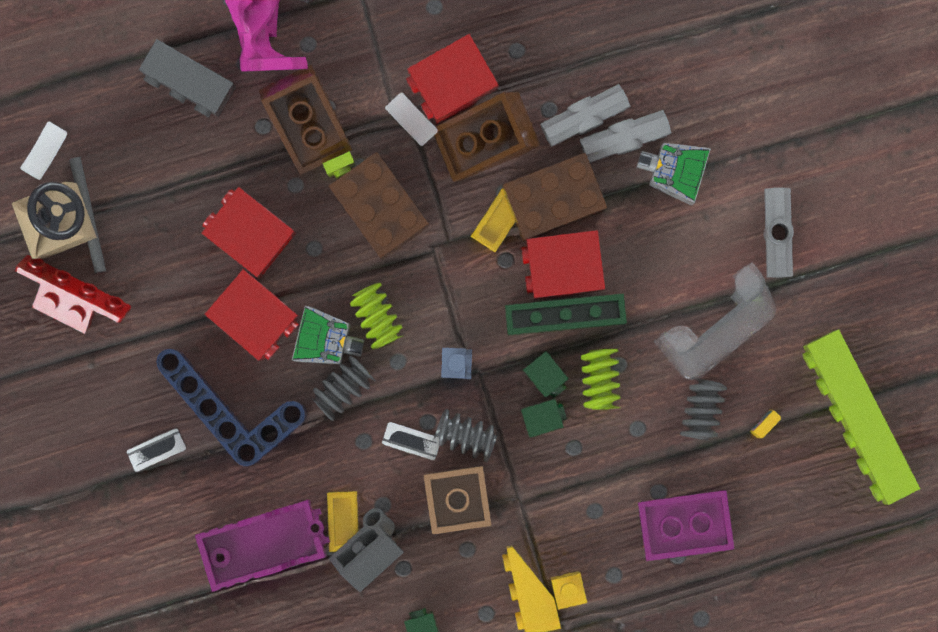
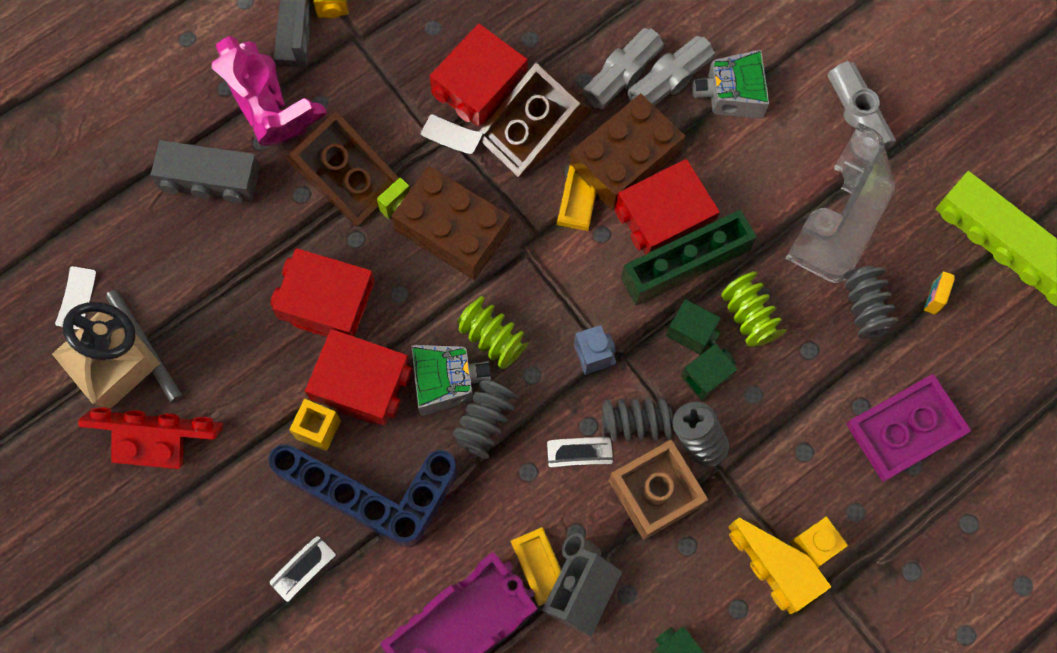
camera: 25 degrees left, 15 degrees down
(204, 342) = (315, 425): none -> yellow brick
(510, 469) = (701, 434): none -> dark grey piece

